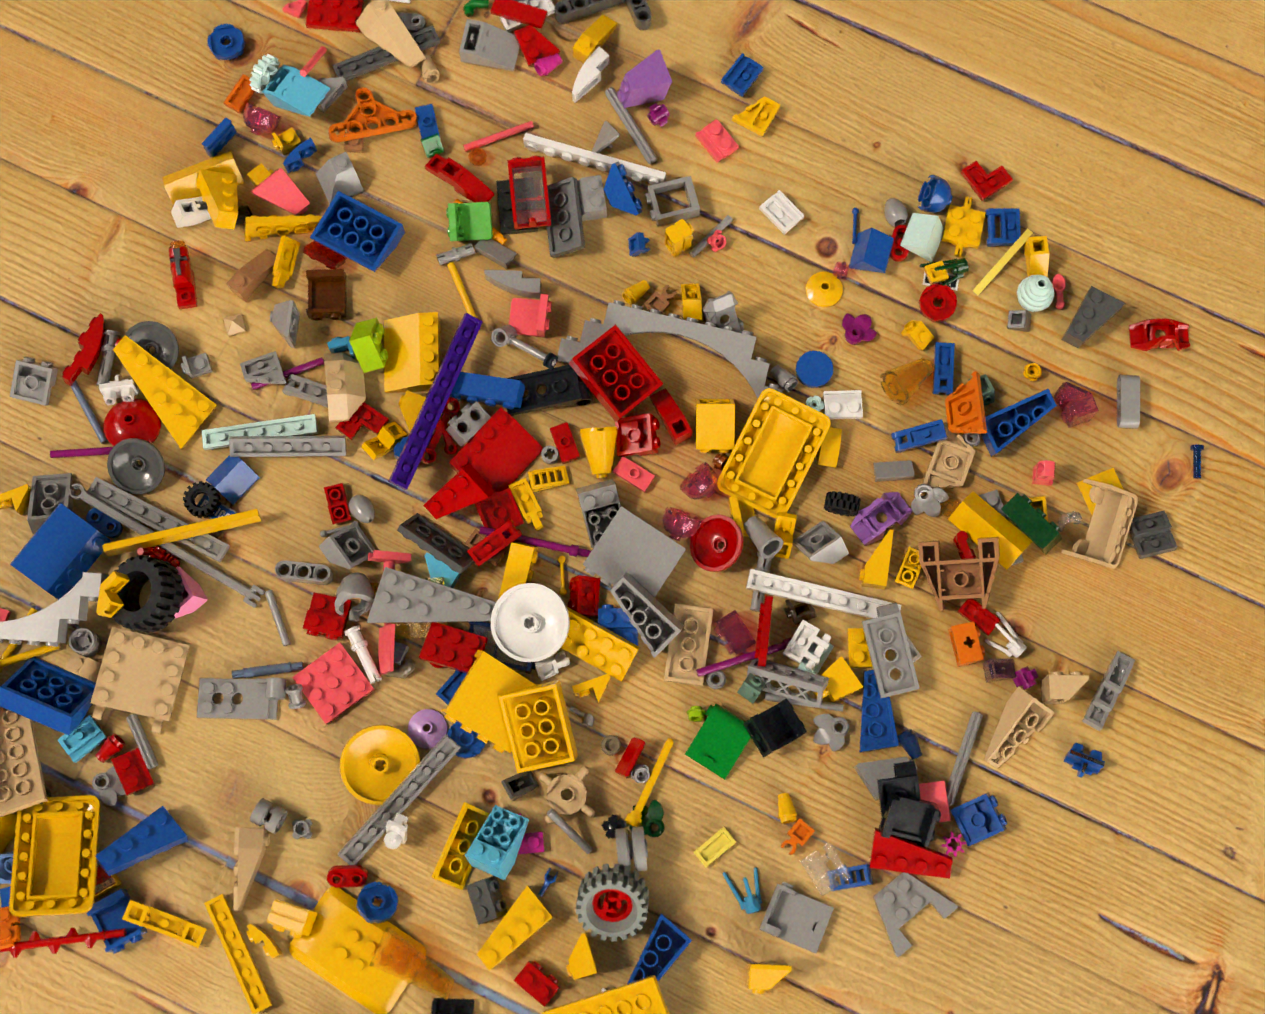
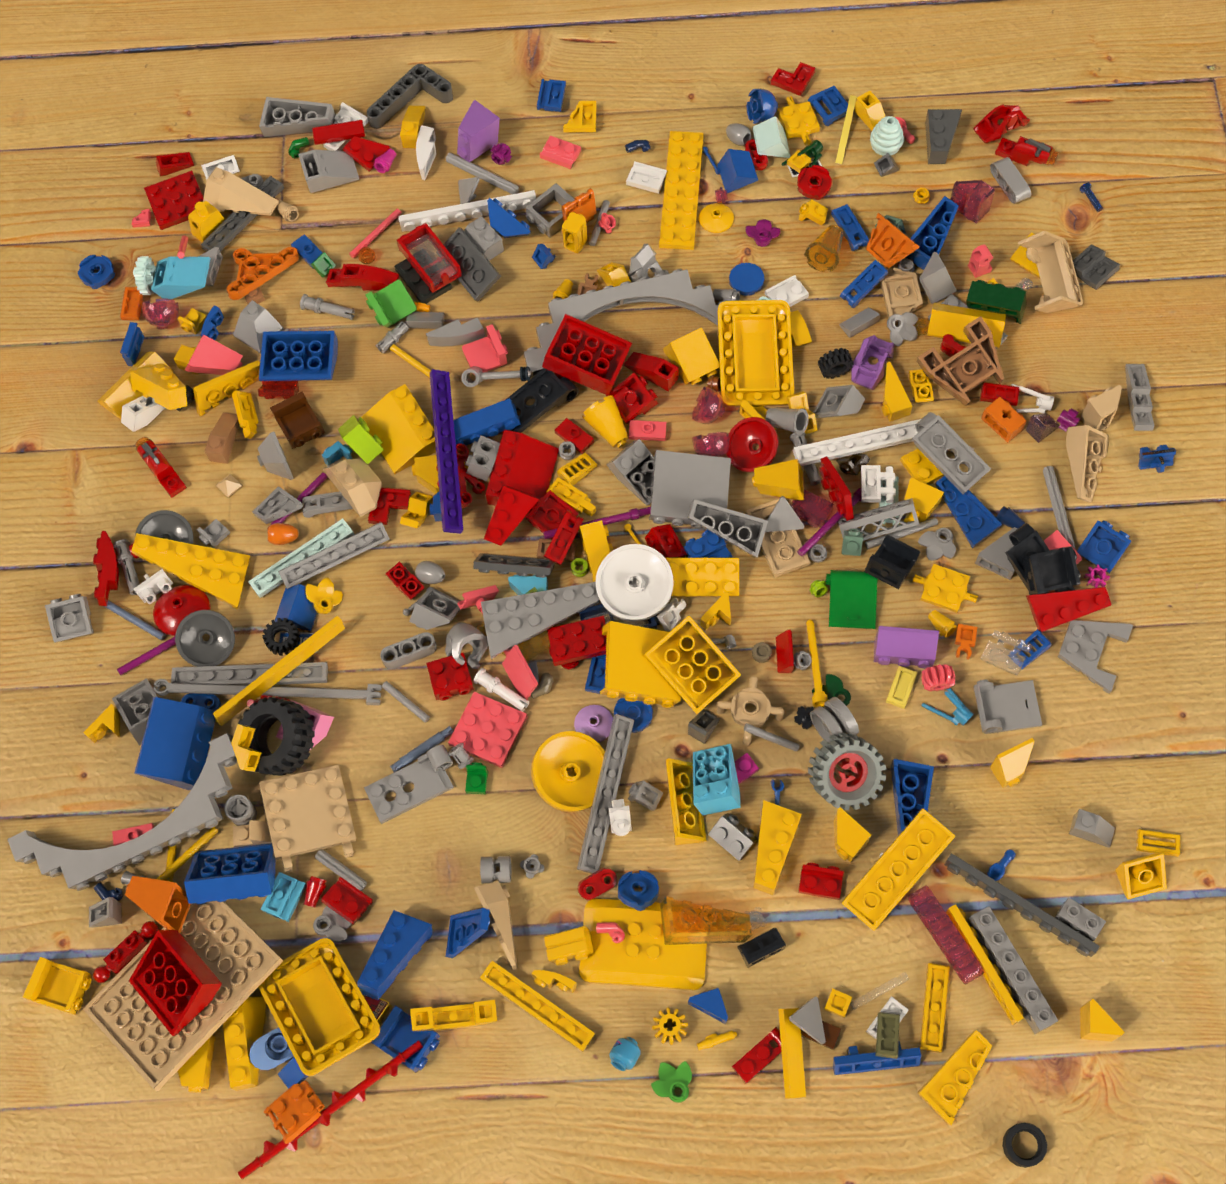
camera: 25 degrees left, 10 degrees down
(212, 857) = (465, 929): none -> blue wing
(254, 399) = (281, 533): none -> orange animal
(261, 477) = (323, 593): none -> yellow plate
(298, 724) = (476, 779): none -> green bracket
(335, 927) = (612, 929): none -> coral arm
(348, 43) = (204, 220): none -> yellow torso
(406, 186) = (318, 306): none -> light grey pin
(432, 820) = (645, 795): none -> light grey bracket
(462, 988) = (760, 922): none -> clear plate
(491, 573) = (579, 561): none -> lime bush
(699, 217) = (582, 204): none -> orange plate
(701, 632) = (783, 517): none -> light grey piece
(722, 593) = (780, 480): none -> yellow slope
(737, 815) = (905, 646): none -> medium lavender slope
(749, 859) = (938, 677): none -> coral gear
(795, 171) = (644, 144): none -> dark blue arm
(808, 242) = (681, 190): none -> yellow plate
(810, 776) = (945, 588): none -> yellow plate
(989, 469) = (936, 279): none -> light grey slope
(1162, 379) = (1027, 150): none -> red plate

